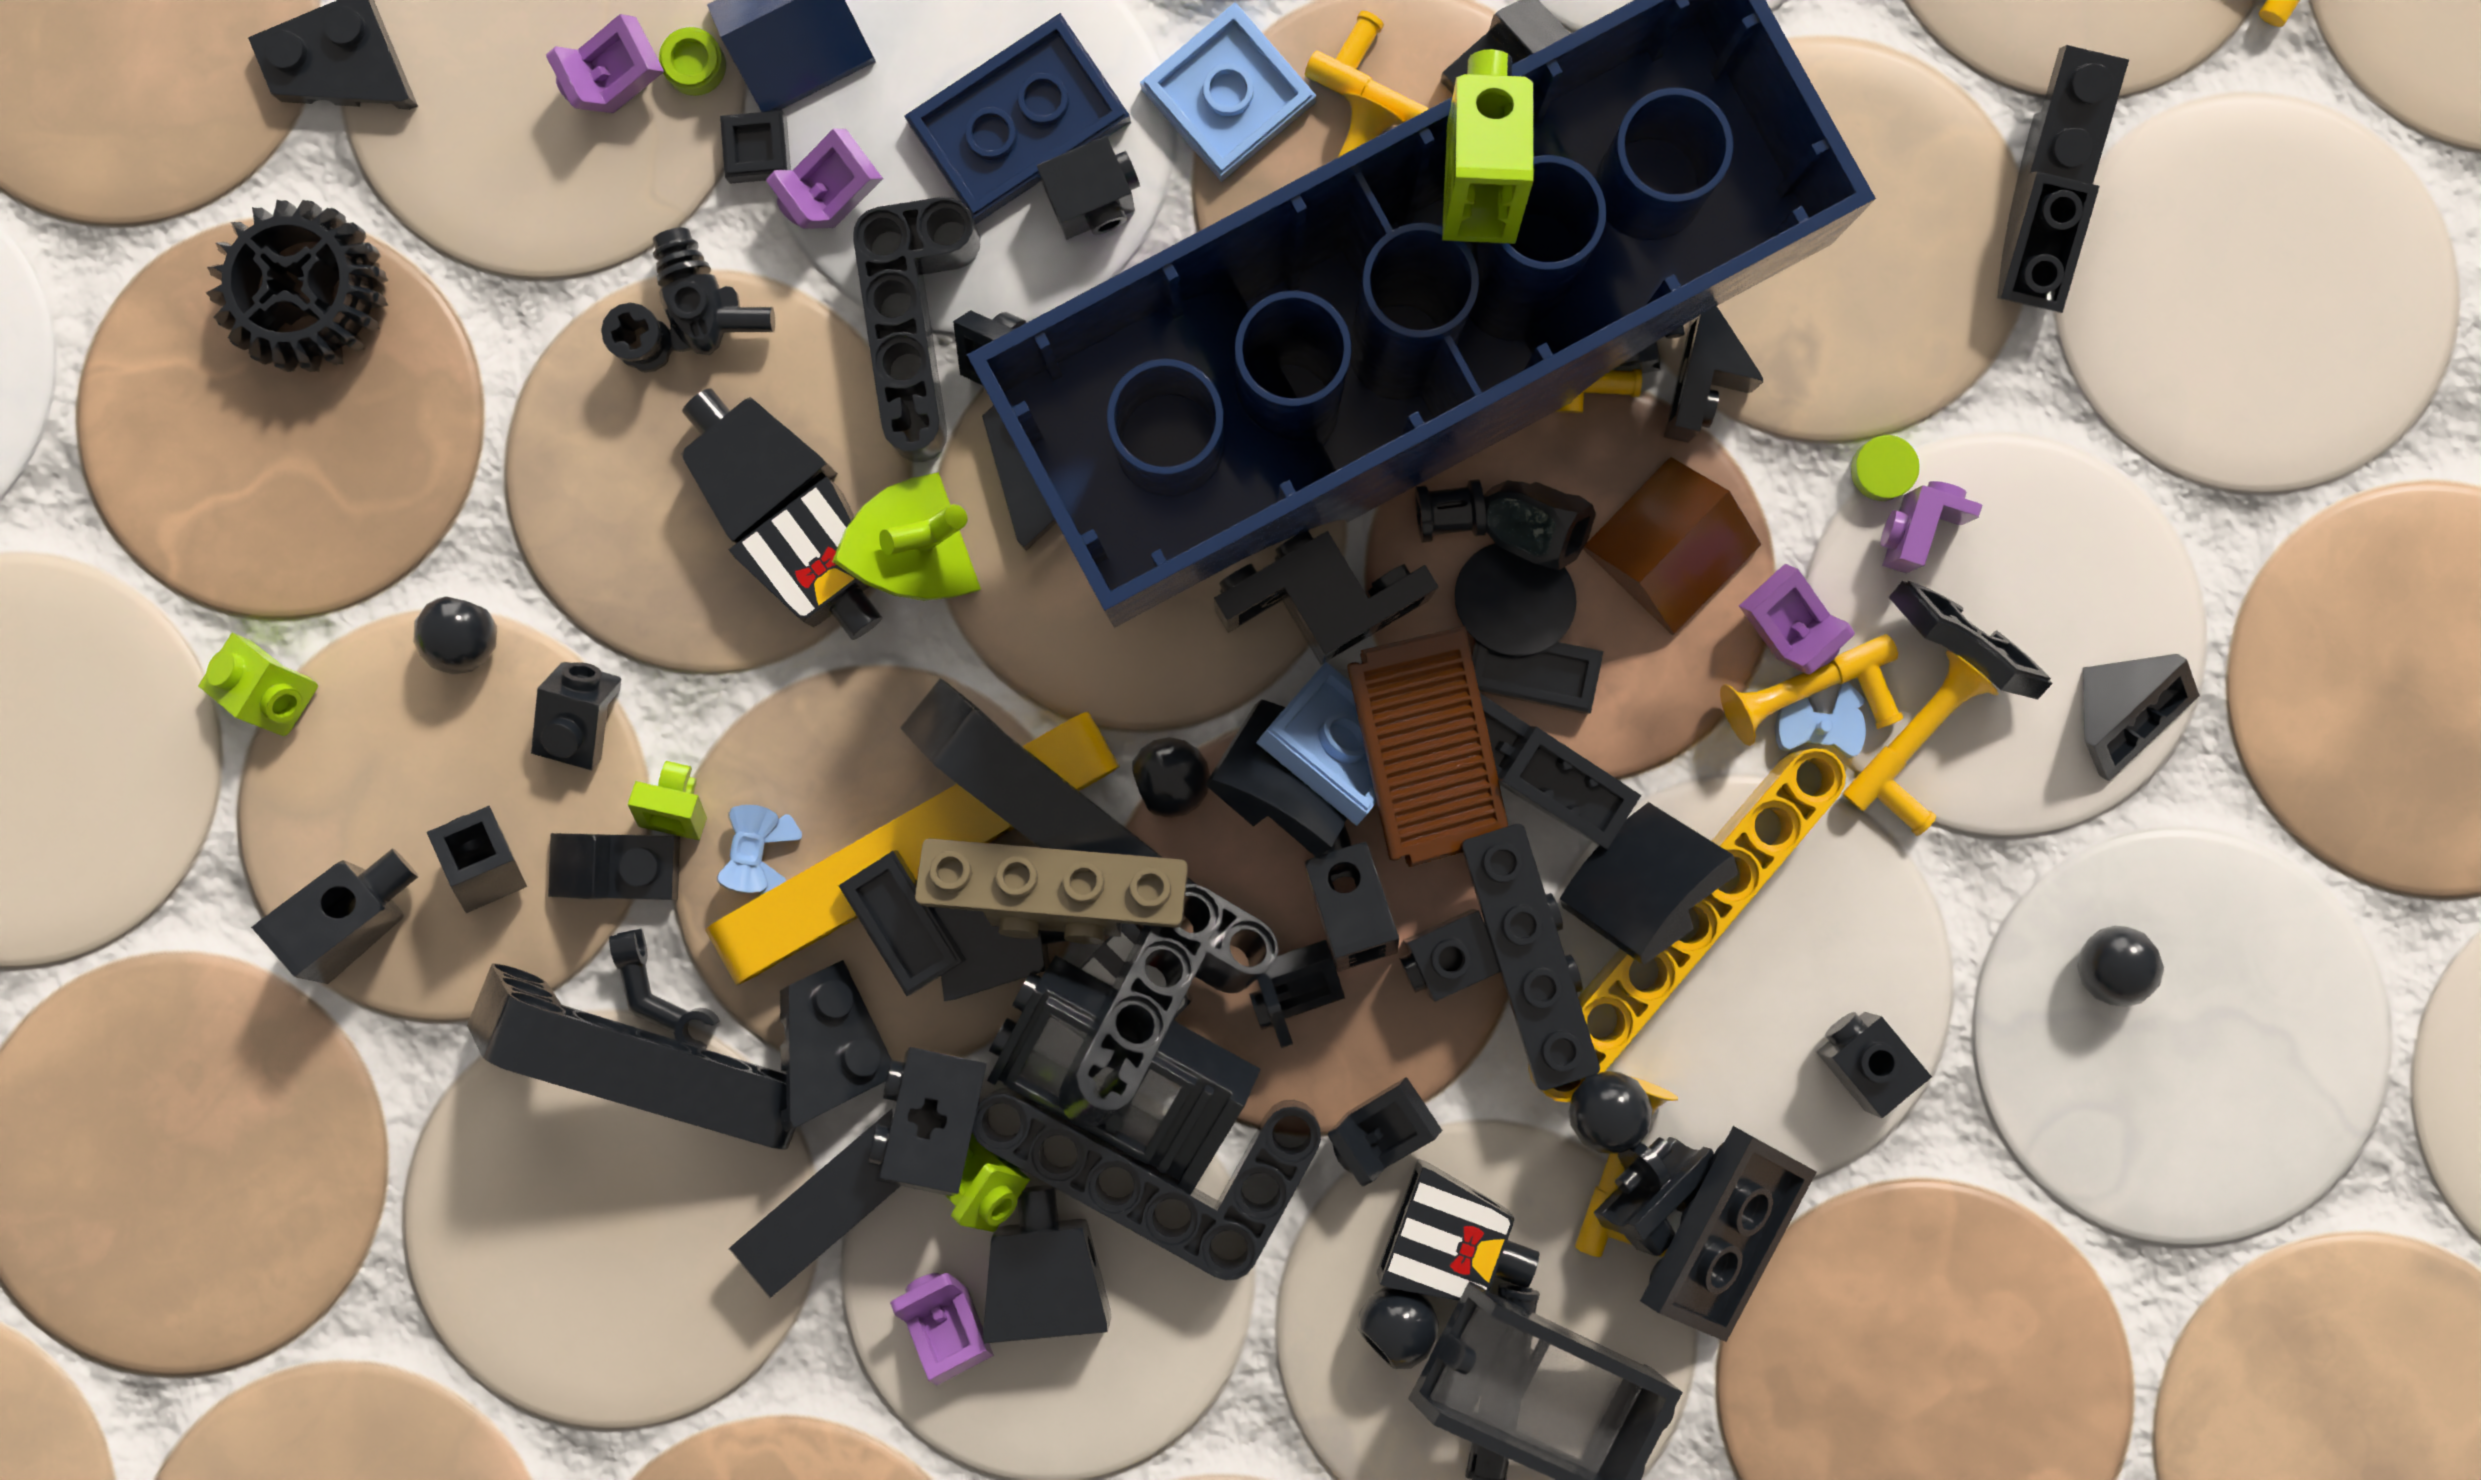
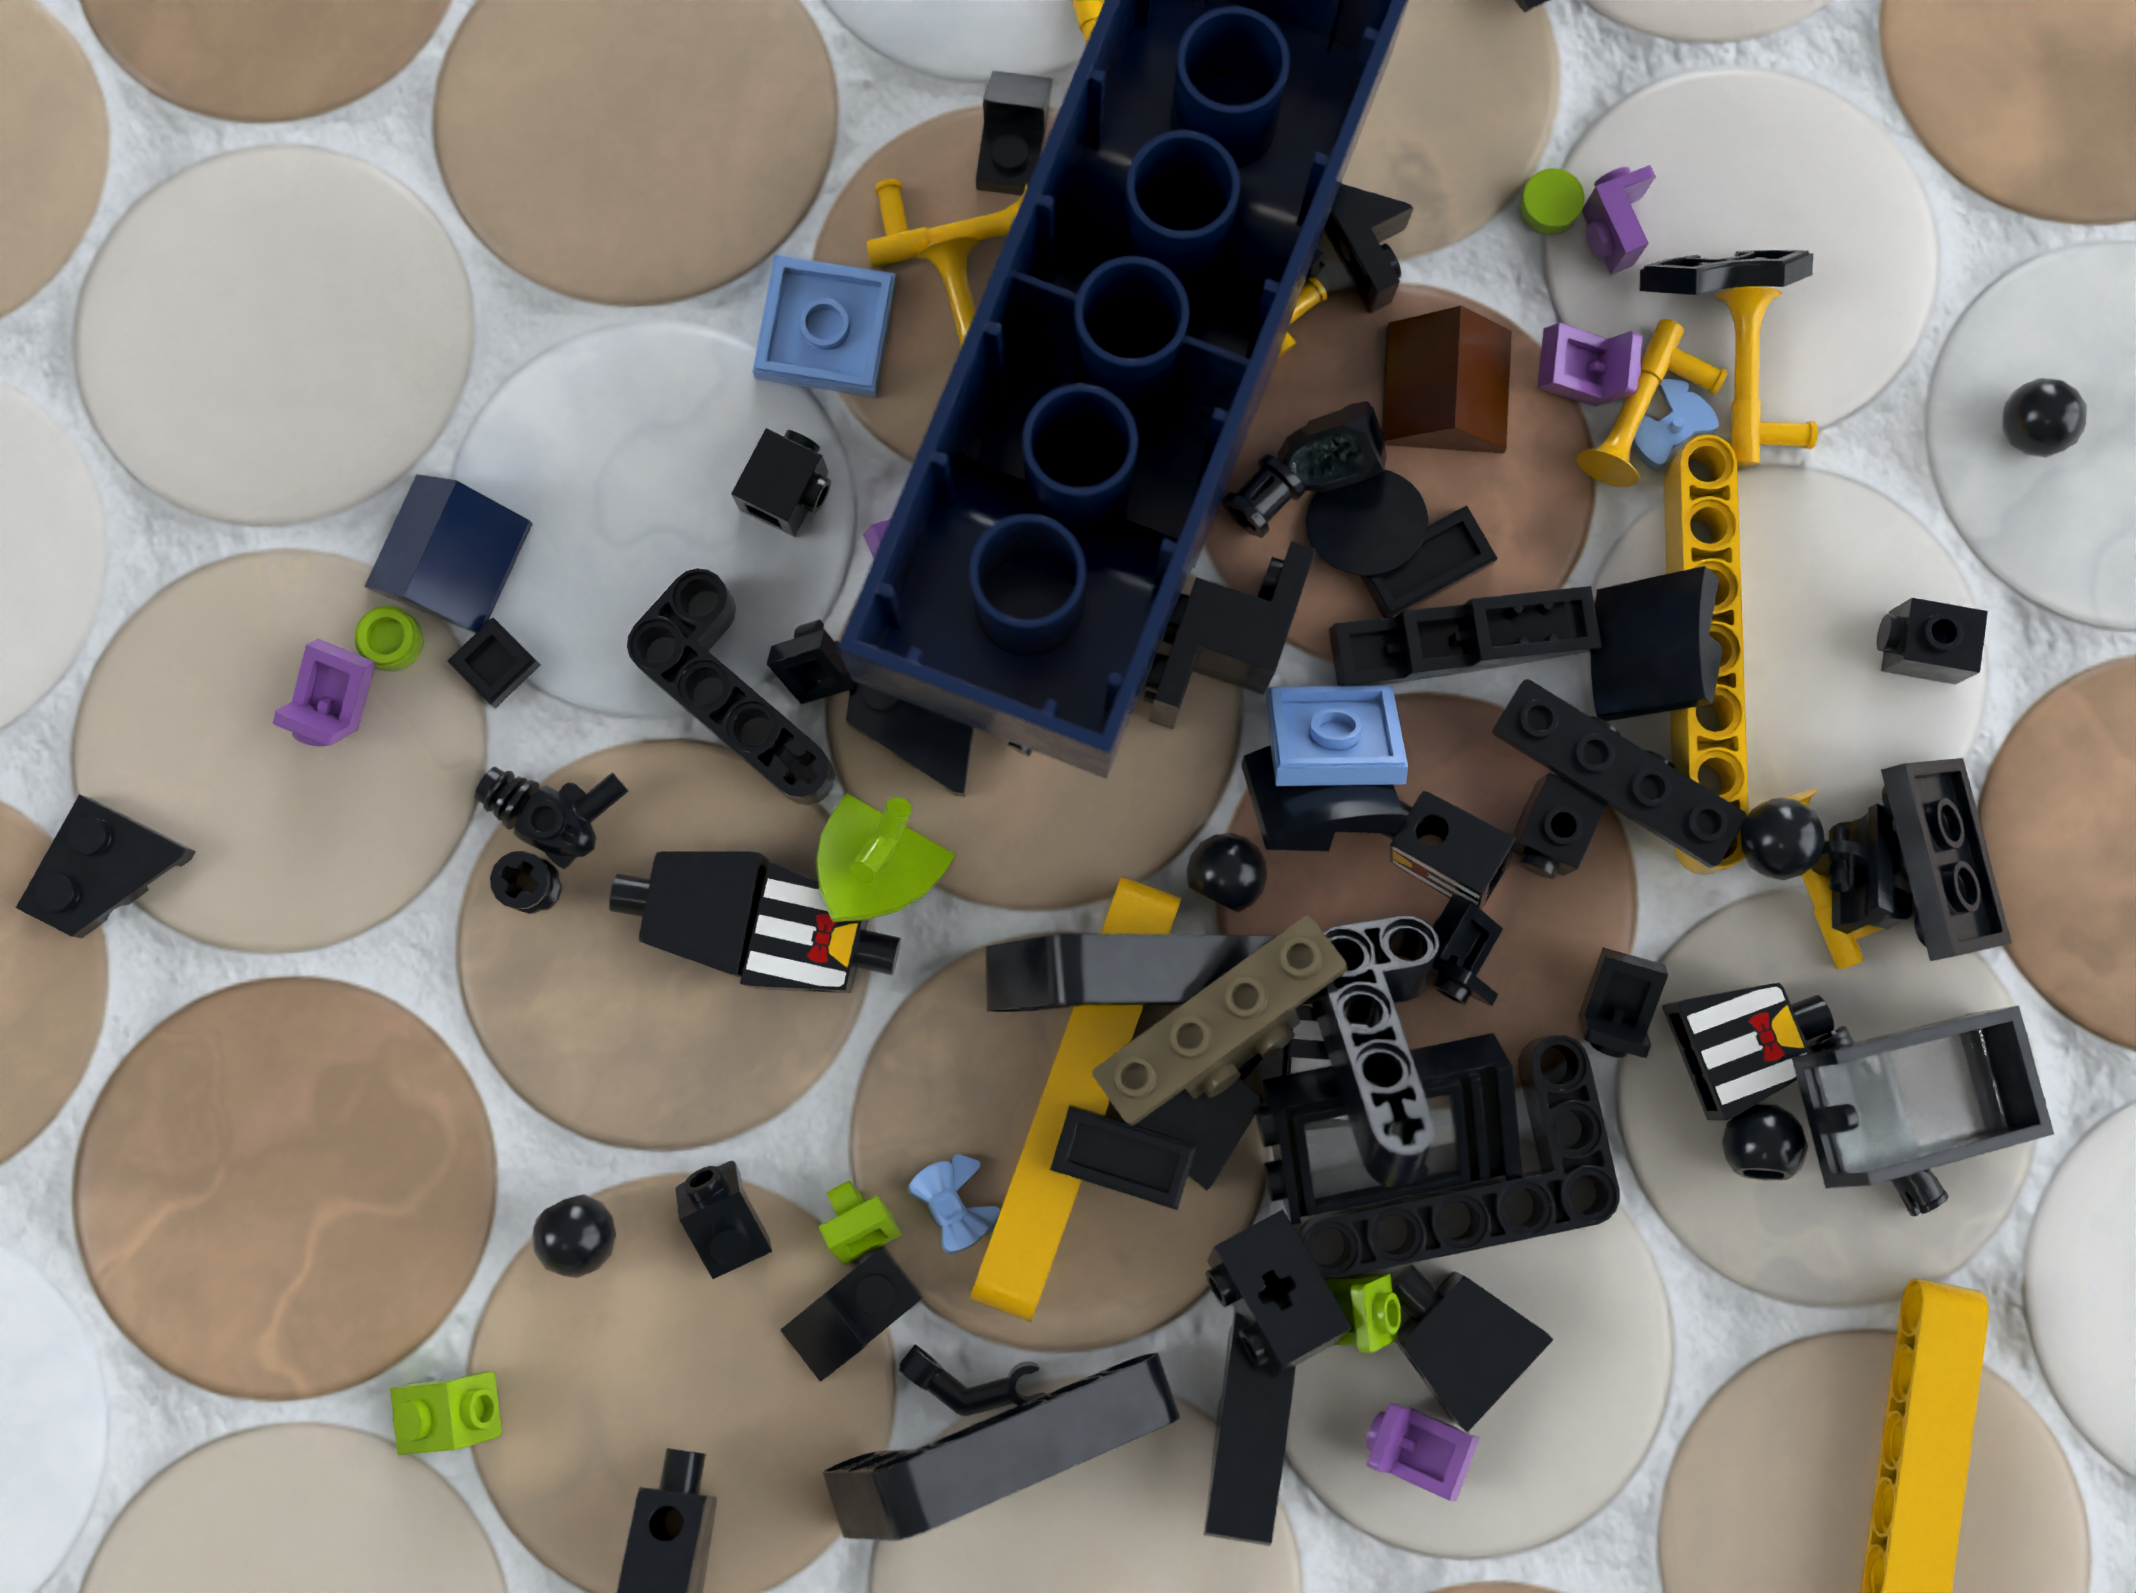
camera: 45 degrees left, 5 degrees down
(258, 313) = (214, 1094): black gear -> none
(476, 859) = (743, 1396): black brick -> none
(825, 182) = (574, 642): medium lavender bracket -> none
(828, 1045) = (1143, 1306): black wing -> none
(1015, 114) = (678, 474): dark blue tile -> none
(1427, 745) = (1404, 680): reddish brown window -> none
(1488, 152) = (1111, 168): lime torso -> none
(2131, 706) = (1881, 223): black slope -> none

